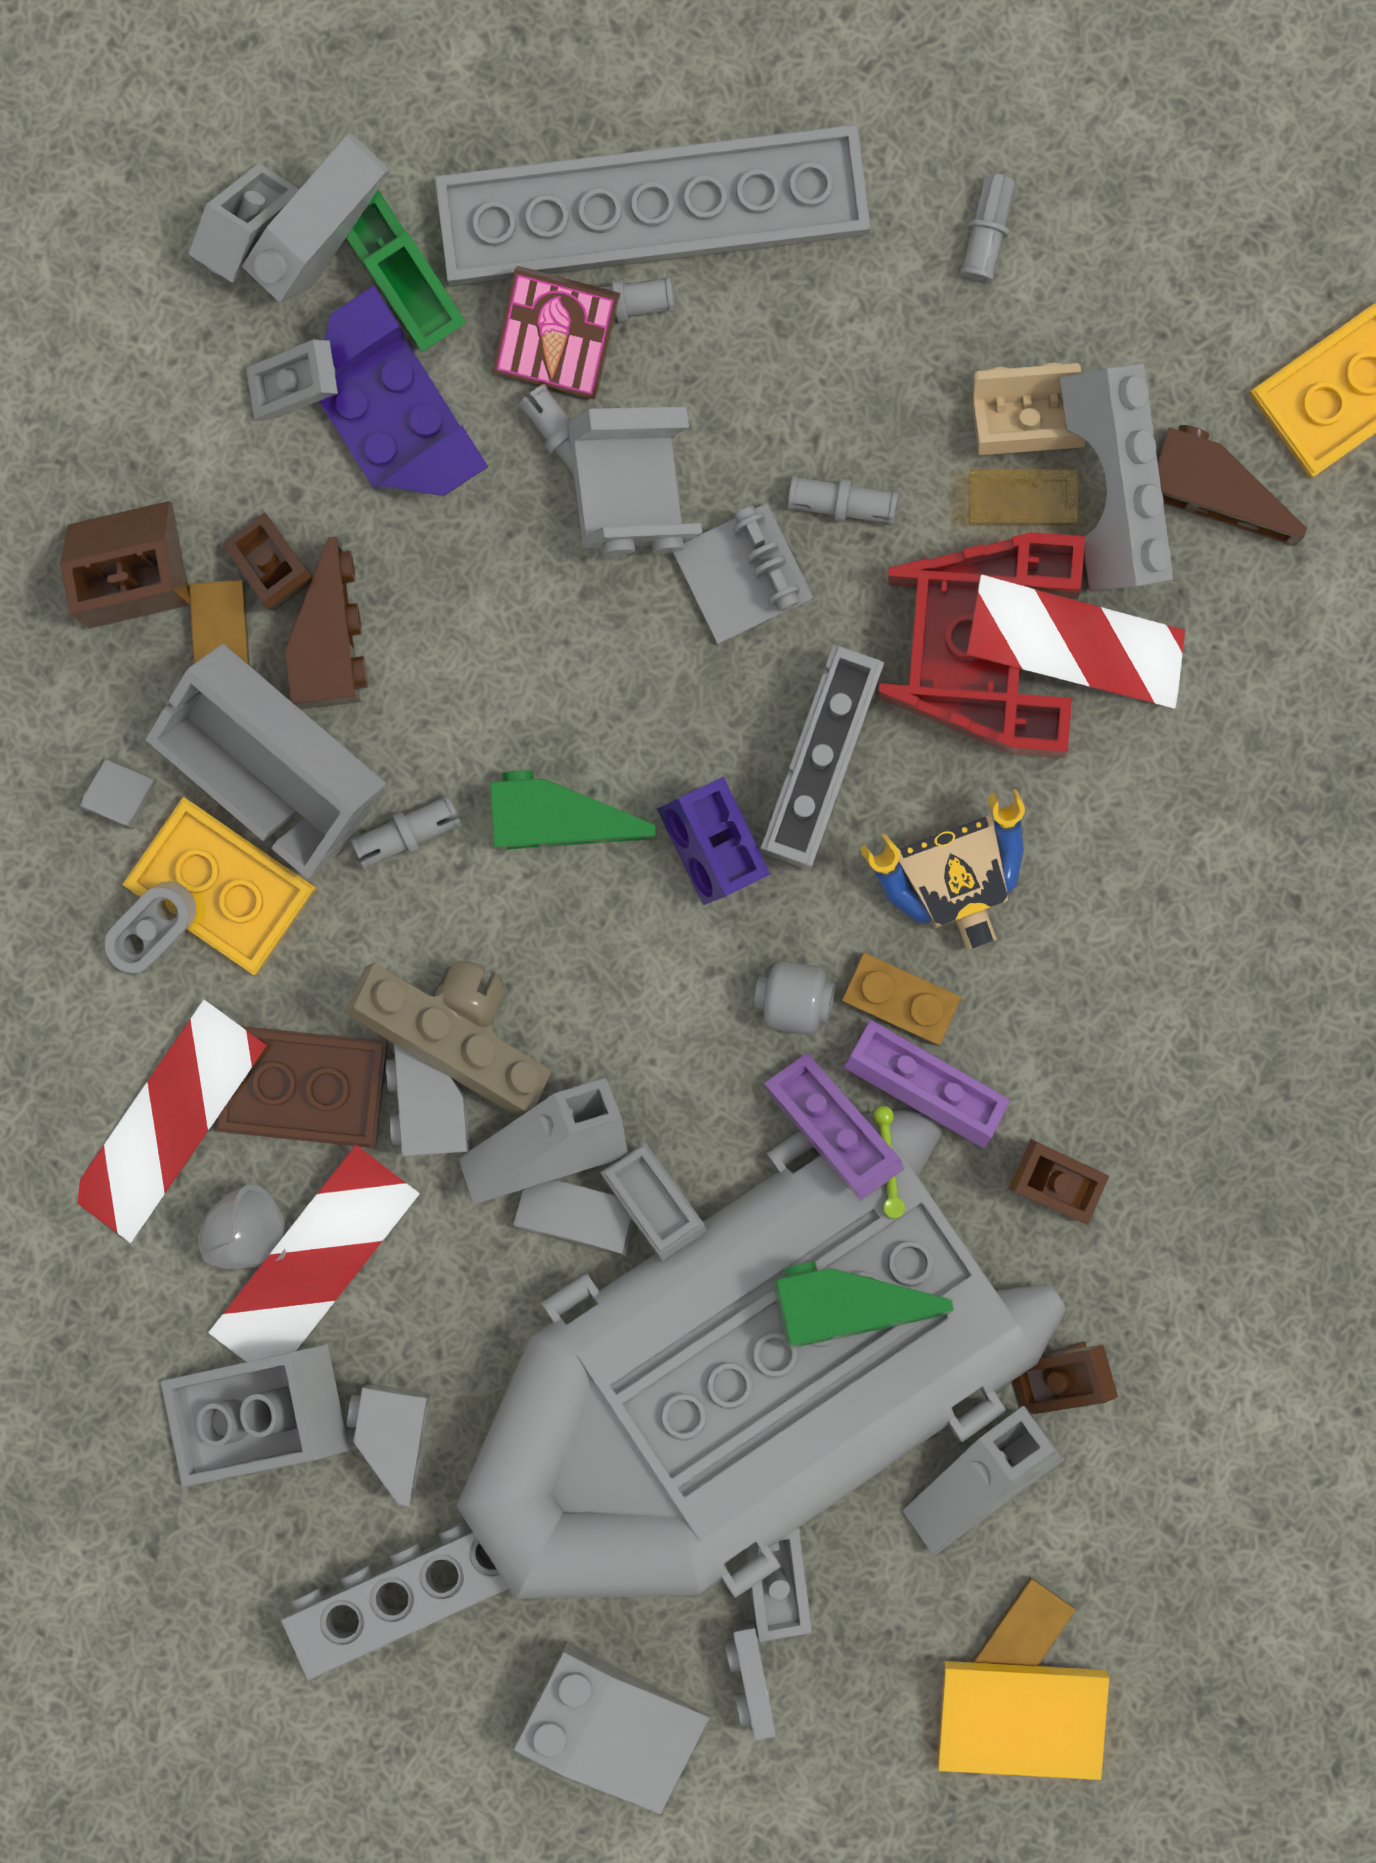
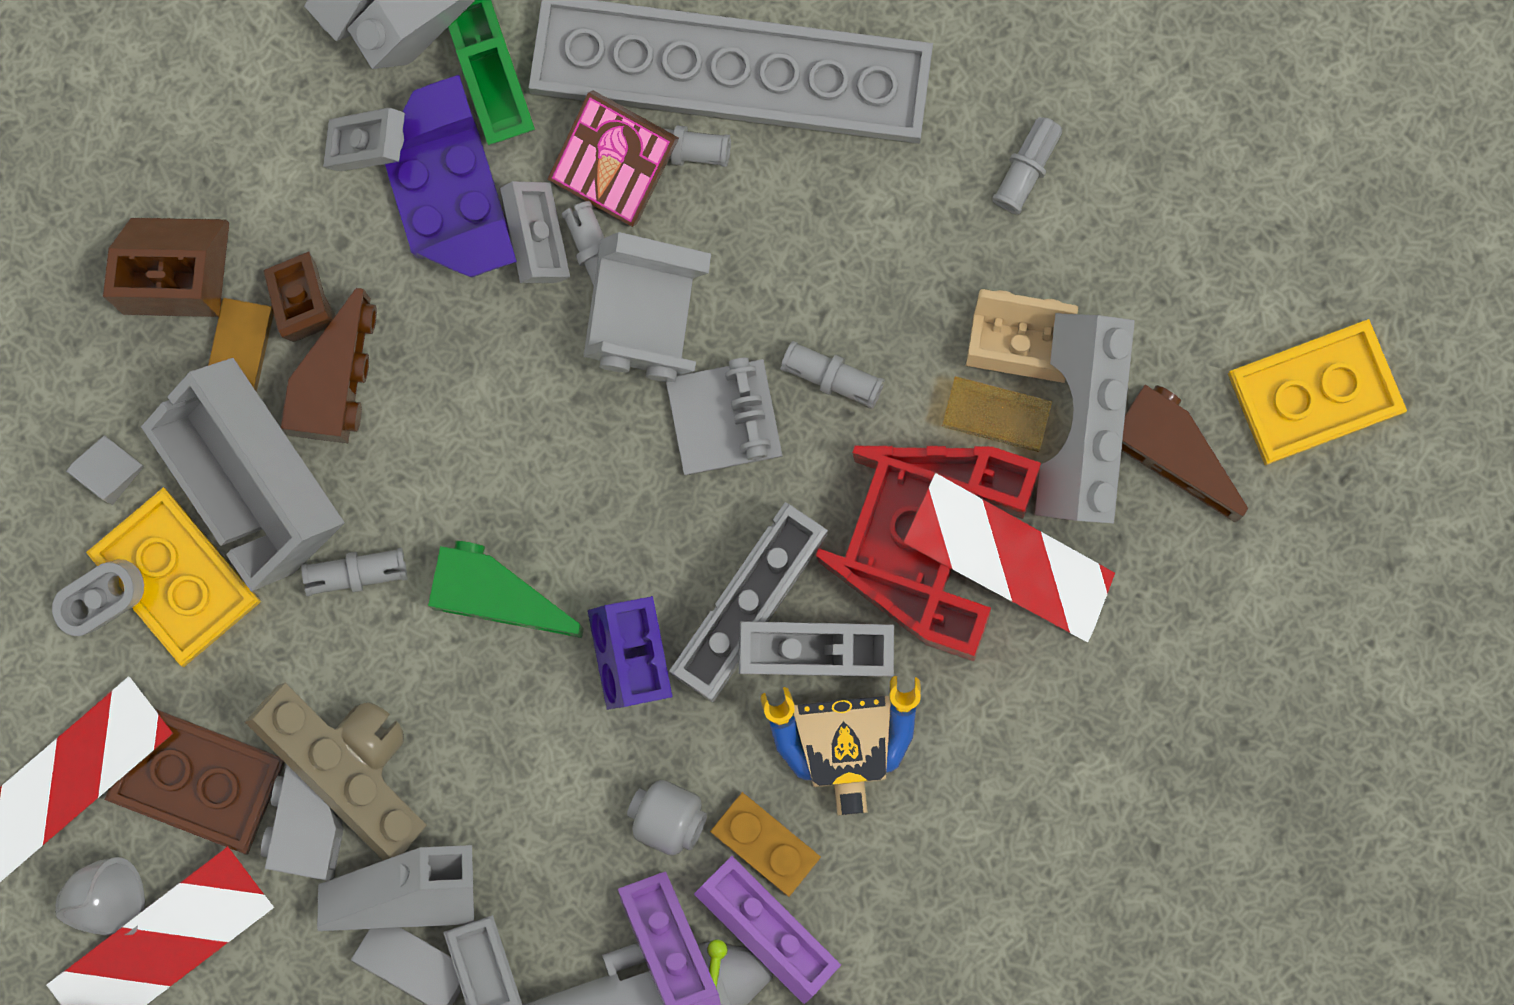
camera: 15 degrees right, 5 degrees down
(495, 430) = (535, 232): none -> light grey plate
(905, 786) = (816, 649): none -> light grey slope

